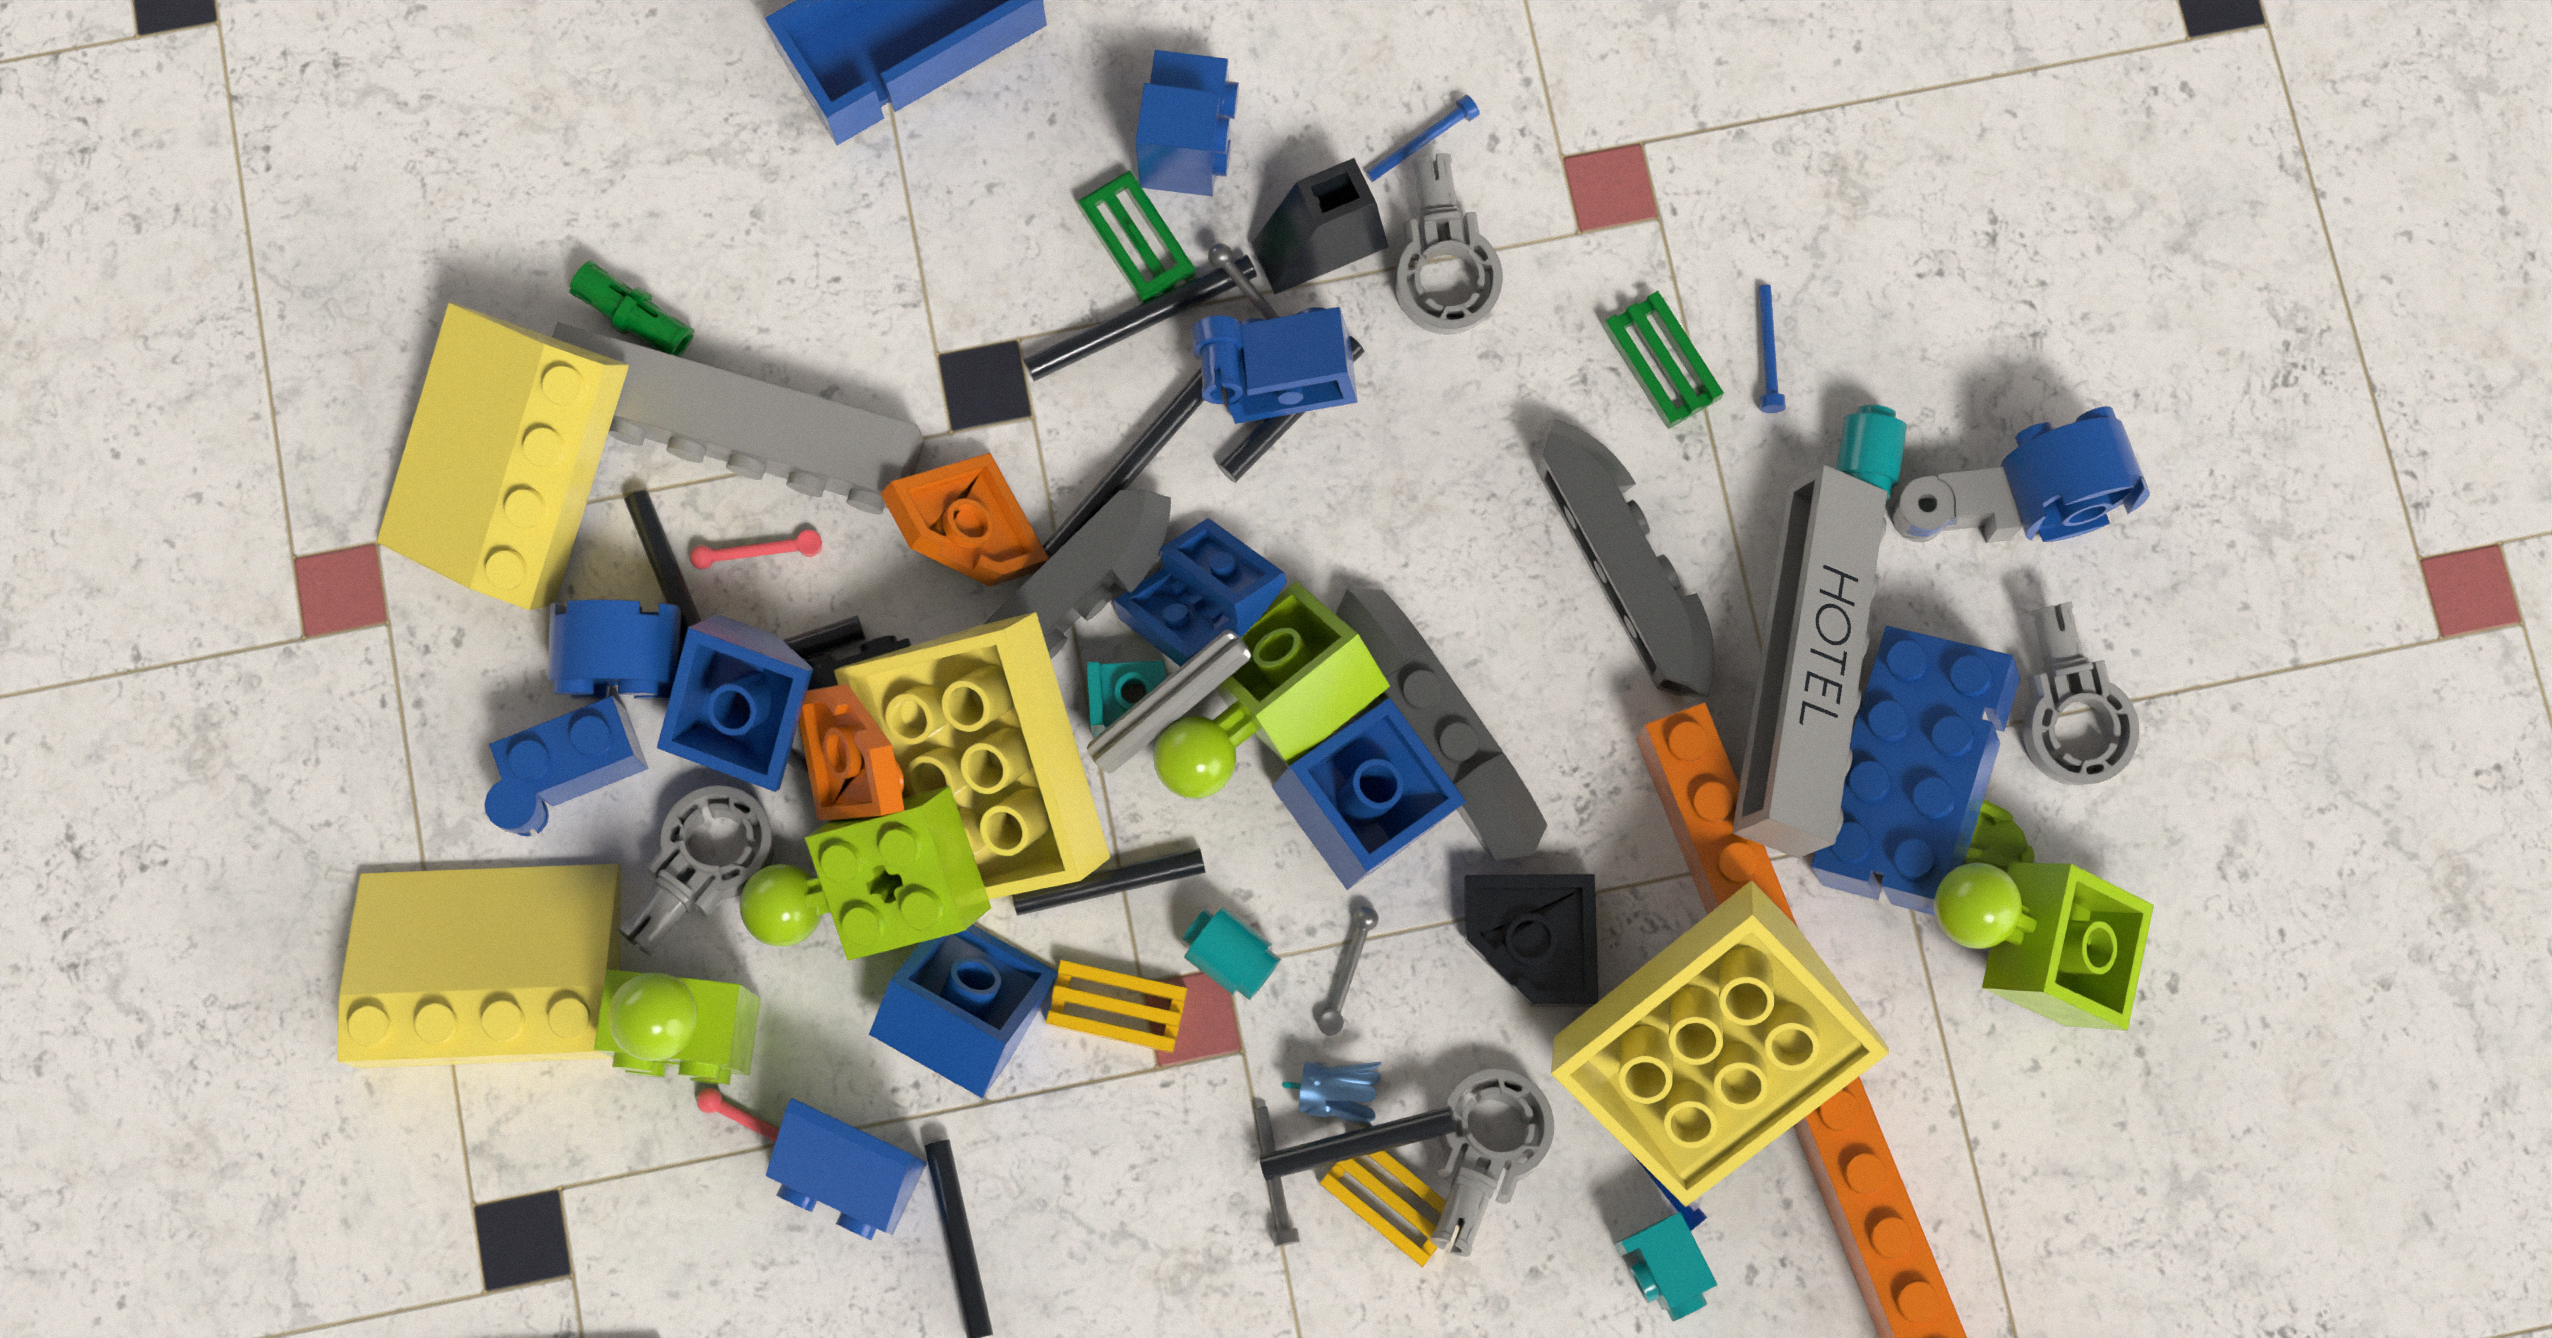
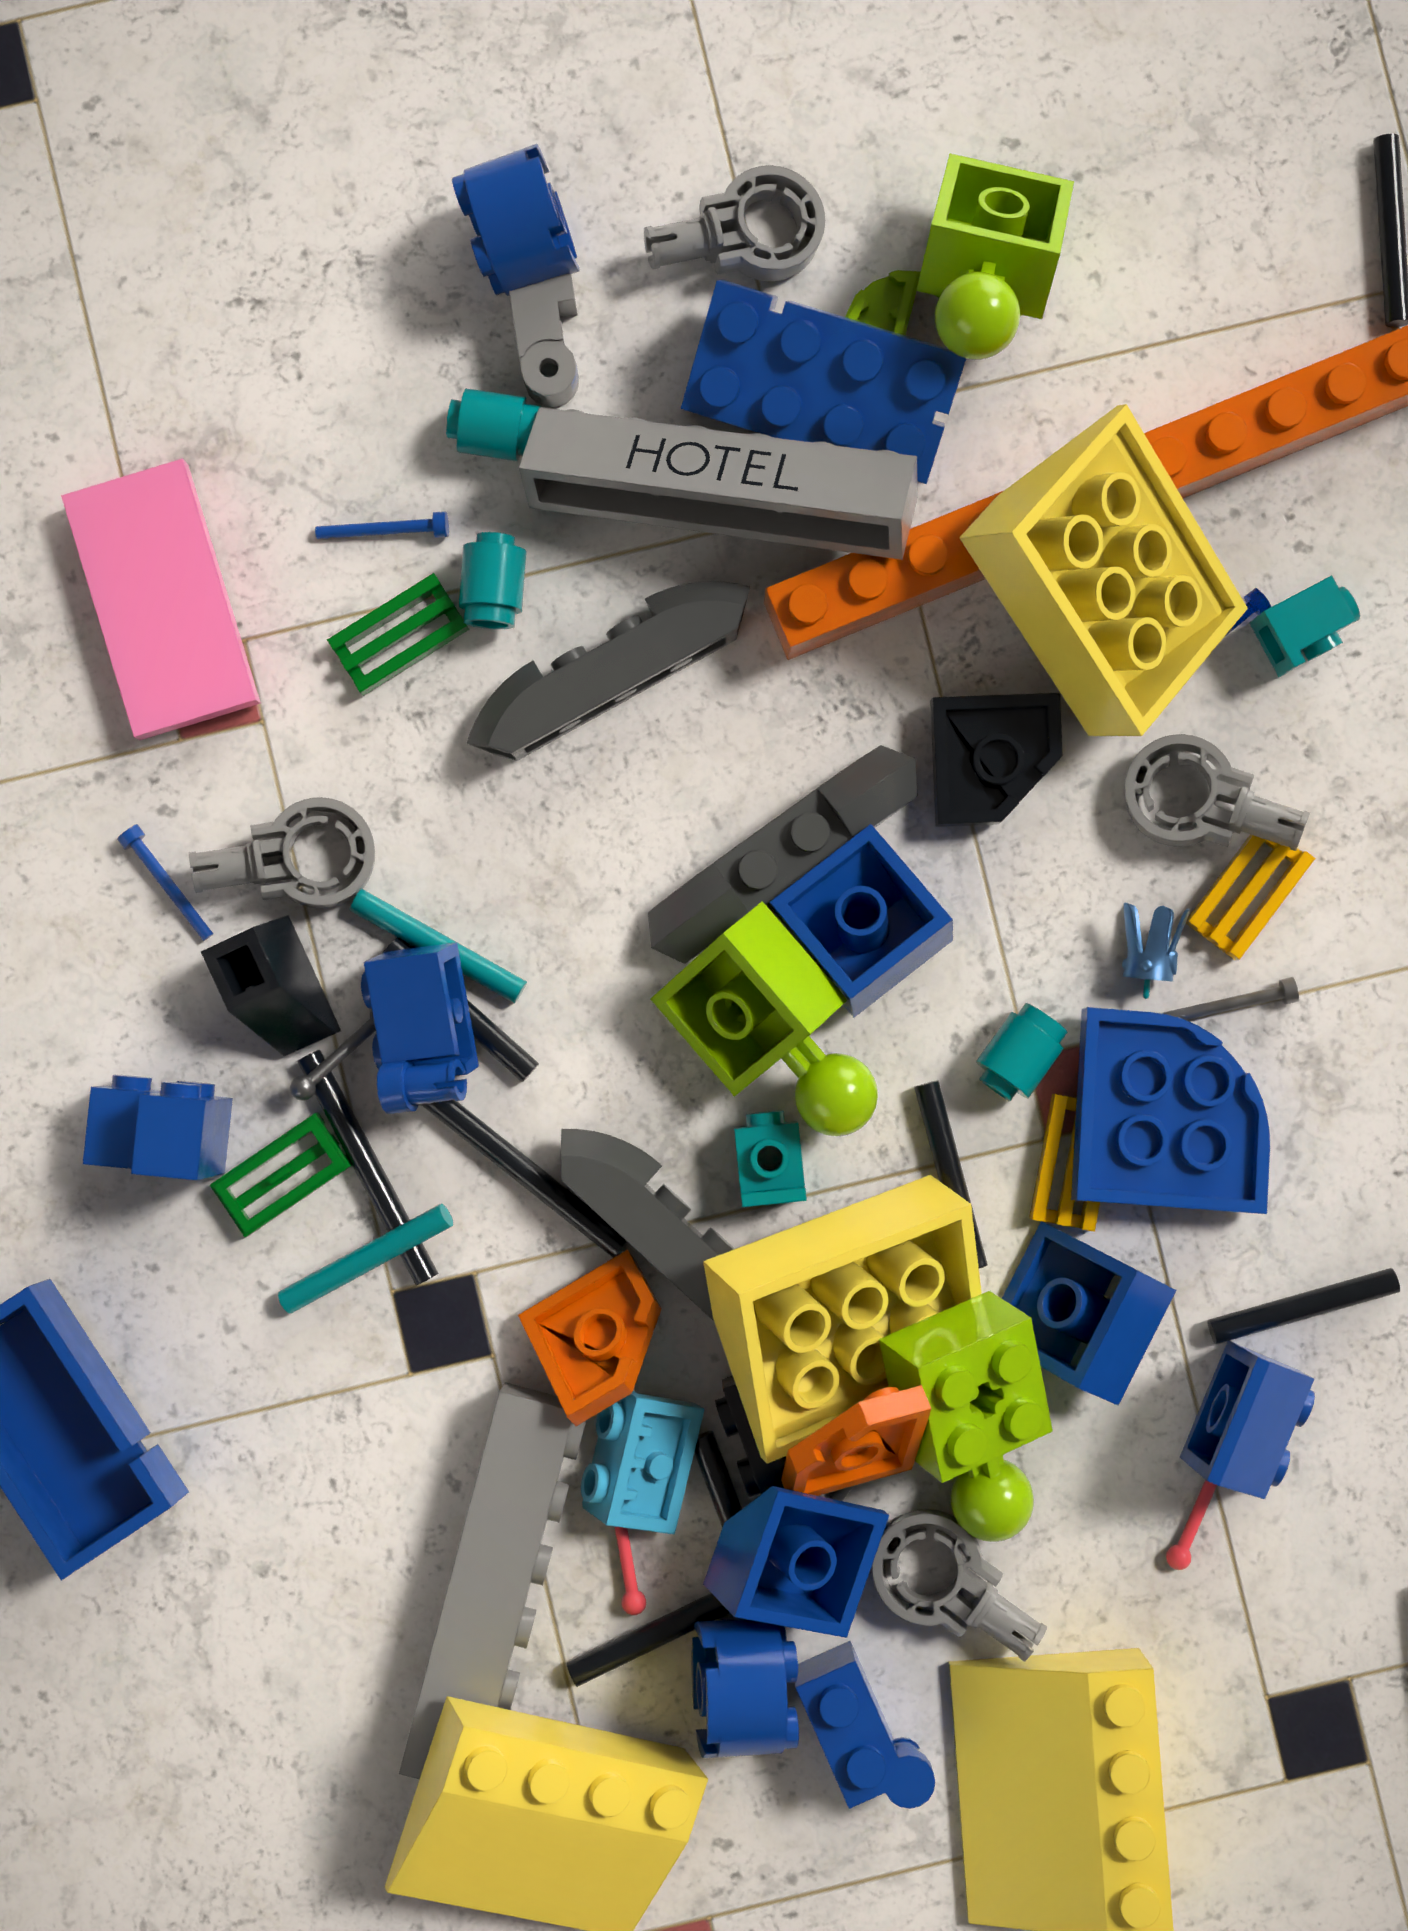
camera: 90 degrees left, 10 degrees up
(630, 310) = (376, 1695): green pin -> none
(677, 1023) = (1127, 1599): lime brick -> none
(840, 566) = (641, 1462): none -> medium azure bracket
(1052, 311) = (365, 1258): none -> teal bar
(1159, 1098) = (1166, 1117): none -> blue plate
(1169, 701) = (784, 1122): light grey axle -> none
(1204, 588) = (666, 1093): blue slope -> none
(1331, 1021) = (1077, 953): flat silver hinge -> none
(1358, 1143) = (1205, 922): black bar -> none
(1365, 372) = (420, 935): none -> teal bar
(1697, 138) = (160, 599): none -> bright pink piece
(1714, 446) = (492, 581): none -> teal brick

